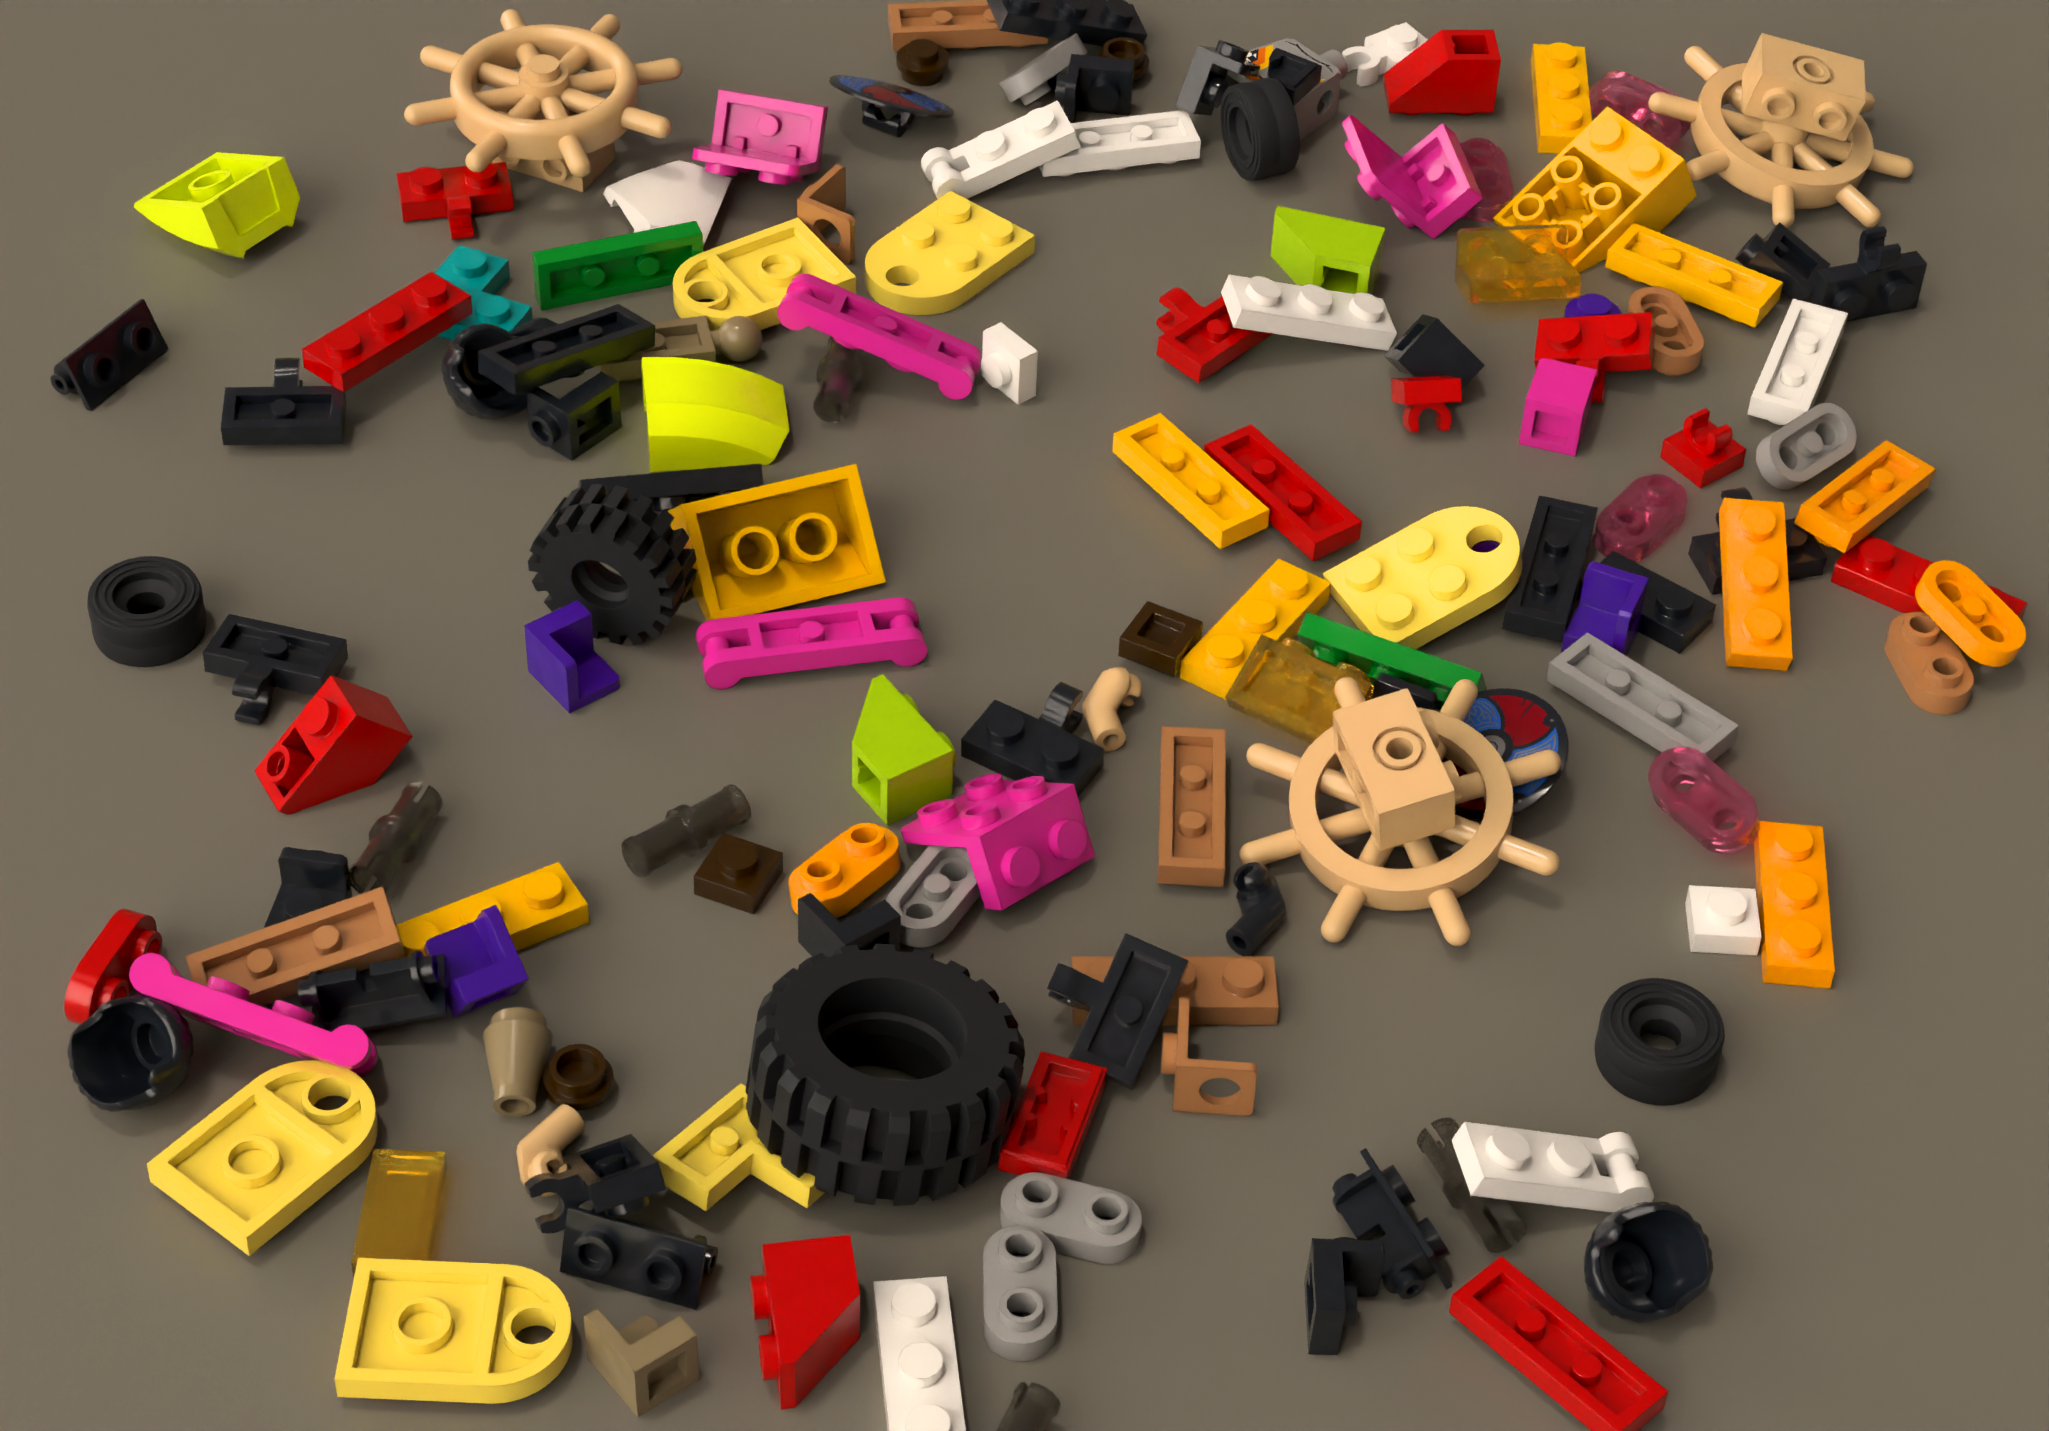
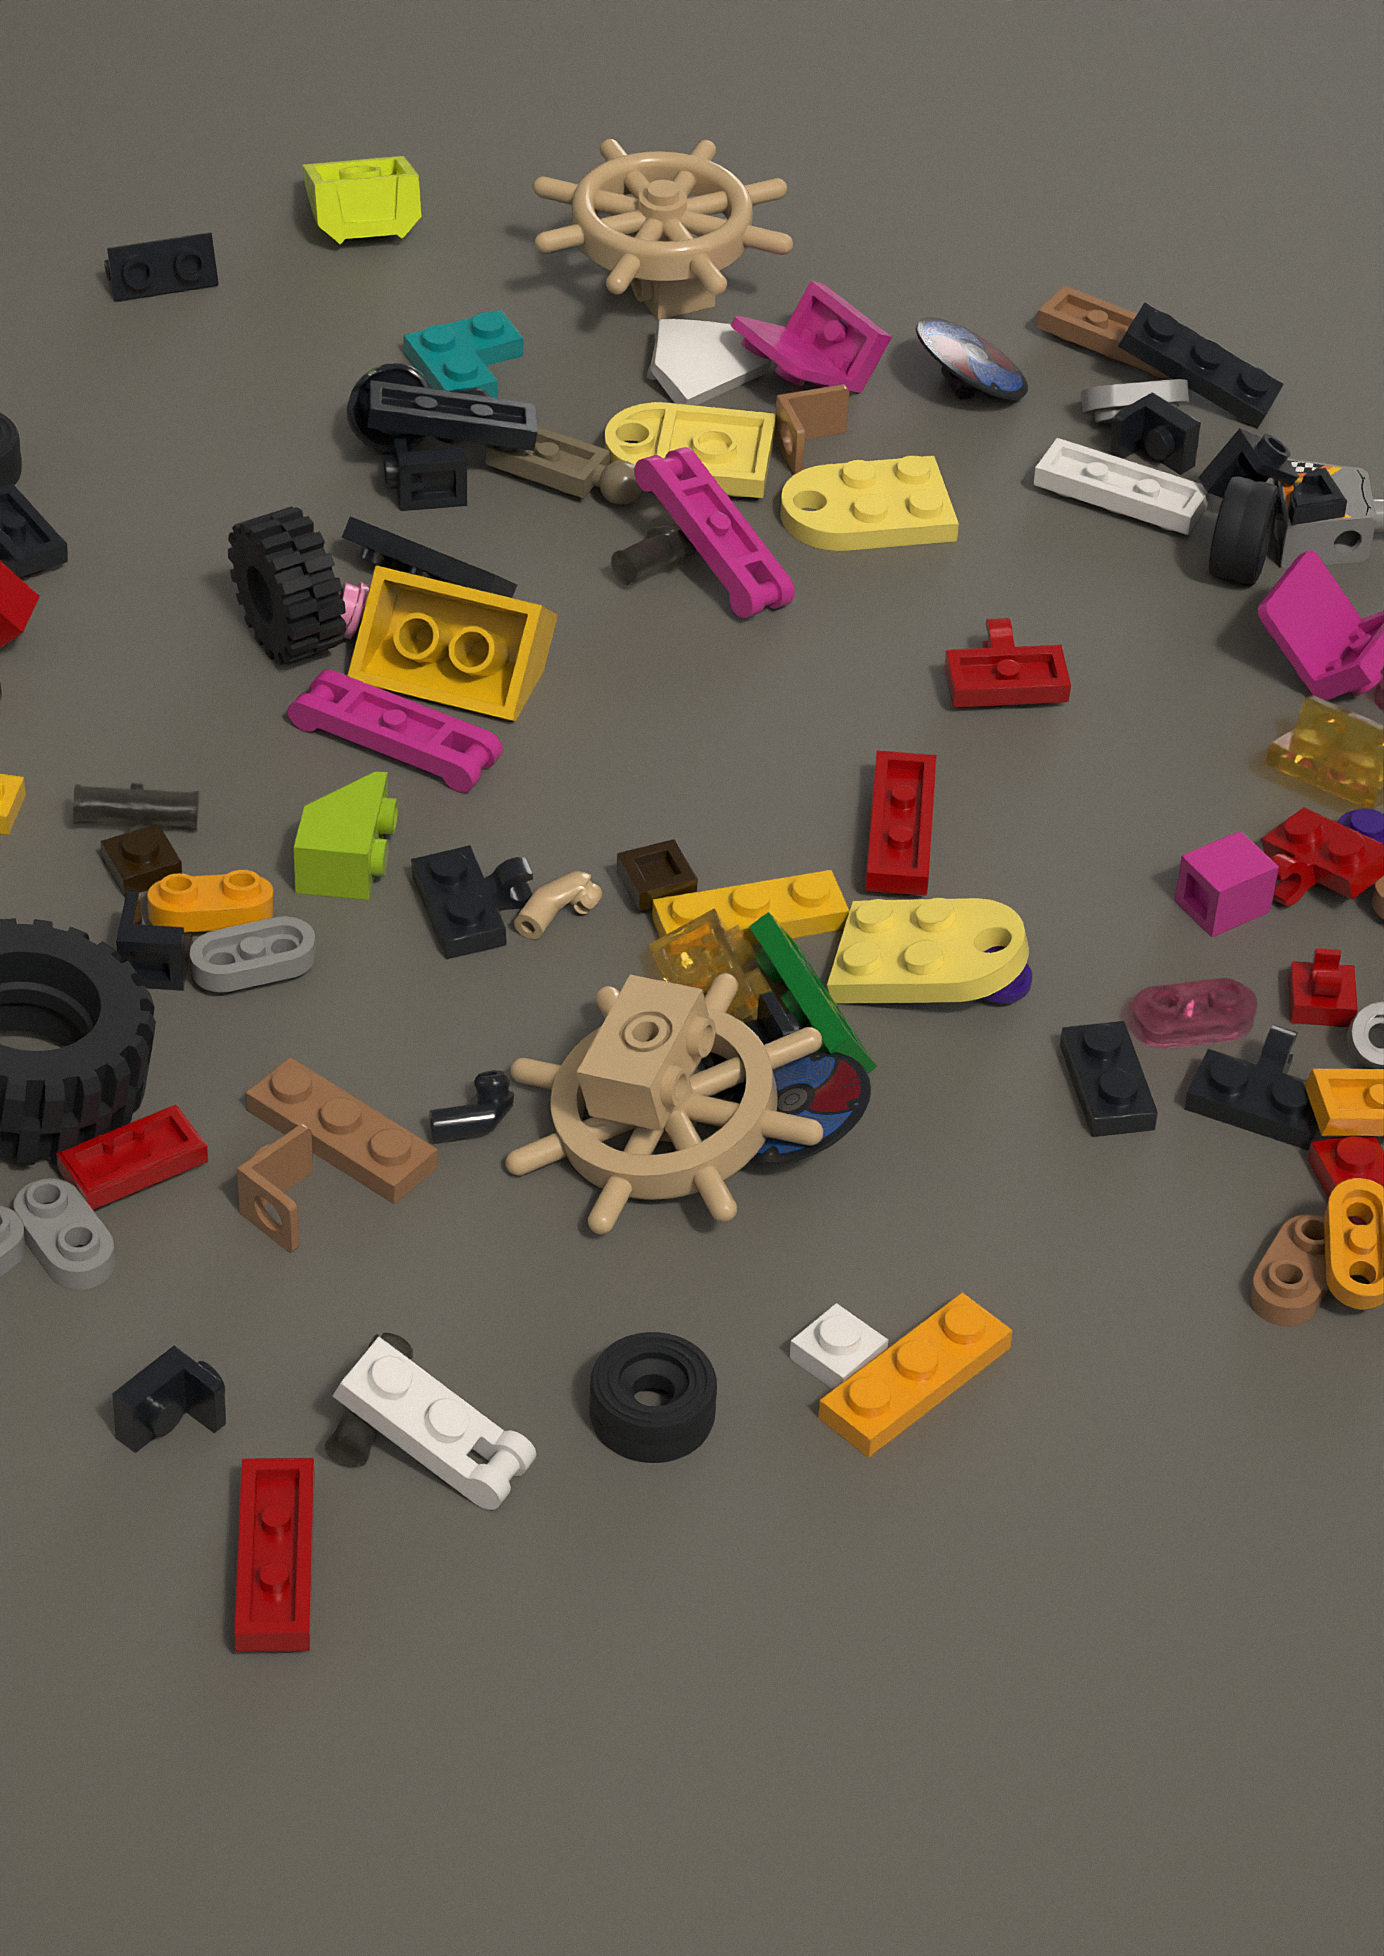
camera: 40 degrees right, 0 degrees up
(283, 412) = (235, 371): black plate -> none
(387, 331) = (355, 341): red plate -> none
(454, 194) = (558, 274): red plate -> none
(565, 660) = (207, 642): dark purple panel -> none
(613, 265) = (589, 378): green plate -> none
(710, 415) = (521, 523): neon yellow slope -> none
(922, 62) = (1046, 347): dark brown plate -> none
(1001, 153) = (1006, 445): white plate -> none
(1009, 363) = (800, 607): white plate -> none
(1013, 833) = (346, 945): dark pink bracket -> none
(1123, 1008) = (262, 1107): black plate -> none
(1128, 49) = (1218, 423): dark brown plate -> none
(1190, 480) = (837, 774): yellow plate -> none
(1192, 806) = (519, 1007): medium nougat plate -> none
(1308, 312) = (1100, 696): white plate -> none
(1327, 250) = (1189, 667): lime slope -> none
(1378, 1203) = (284, 1376): black hinge -> none
(1426, 393) = (1116, 809): red tile -> none
(1433, 350) = (1167, 790): black panel -> none
(1550, 568) = (1045, 1002): black plate -> none
(1608, 607) = (1044, 1073): dark purple panel -> none
(1639, 699) = (987, 1149): light grey plate -> none
(1647, 1261) = (406, 1532): black hair -> none
(1707, 804) = (933, 1248): clear pink plate -> none
(1755, 584) = (1204, 1113): light orange plate -> none

